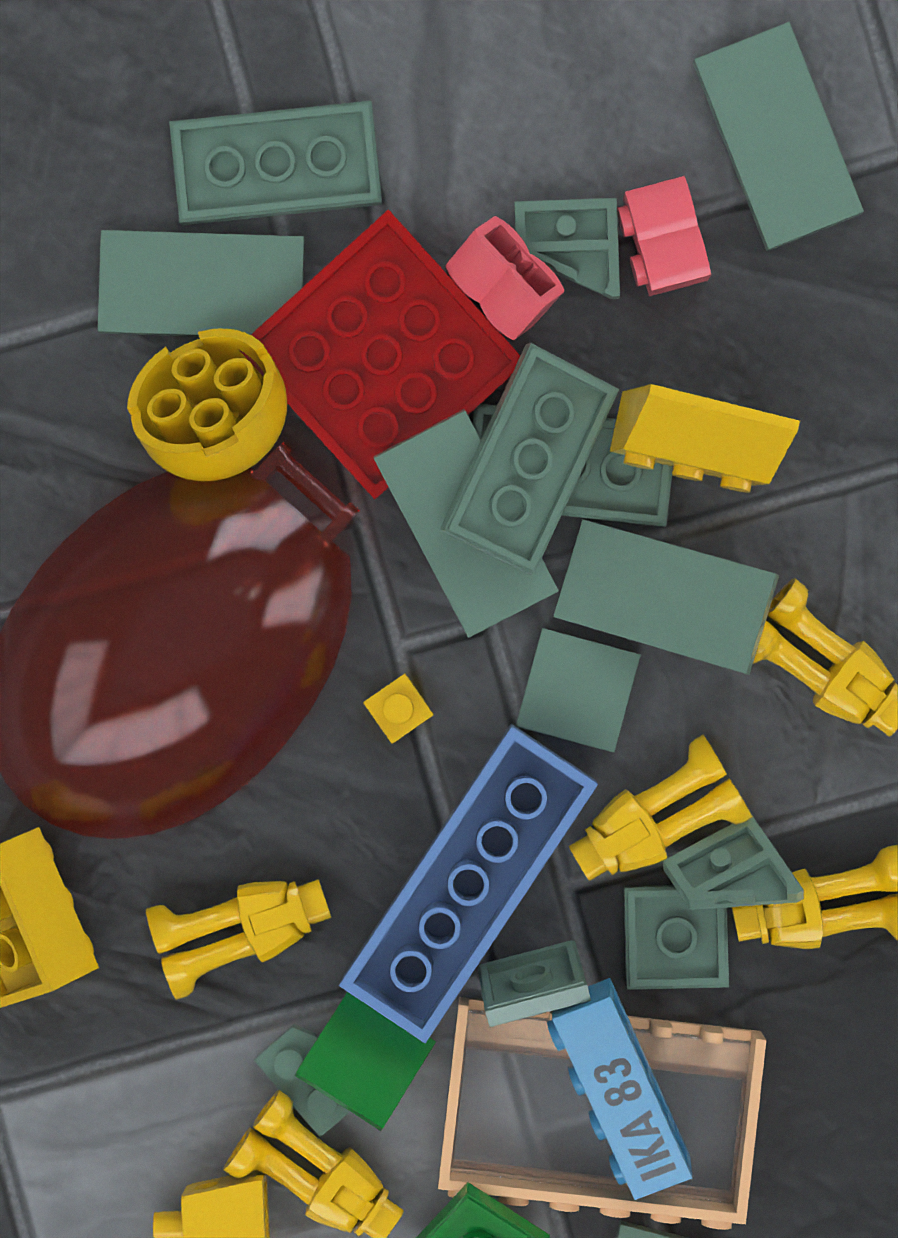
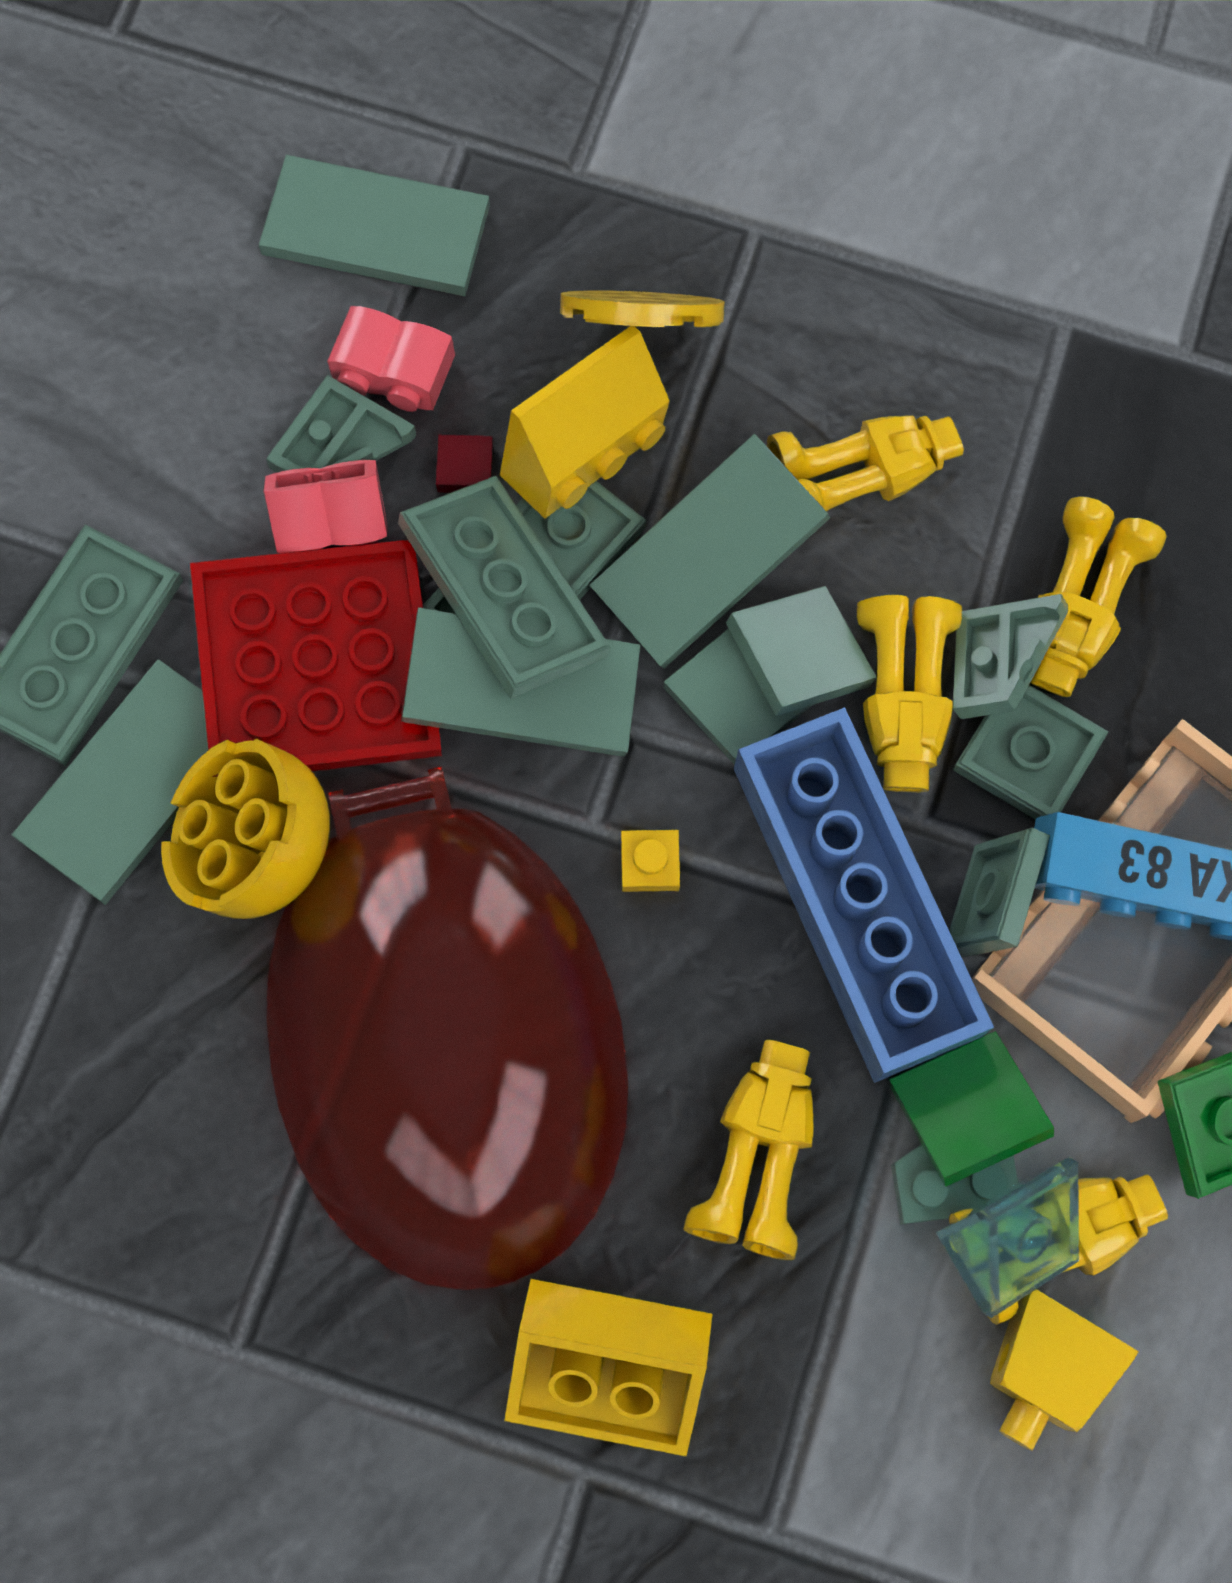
camera: 60 degrees left, 15 degrees down
(285, 1148) = (1018, 1237): none -> clear light blue slope
(619, 353) = (463, 461): none -> dark red tile
(634, 716) = (800, 650): none -> sand green tile
(831, 411) = (642, 308): none -> yellow tile

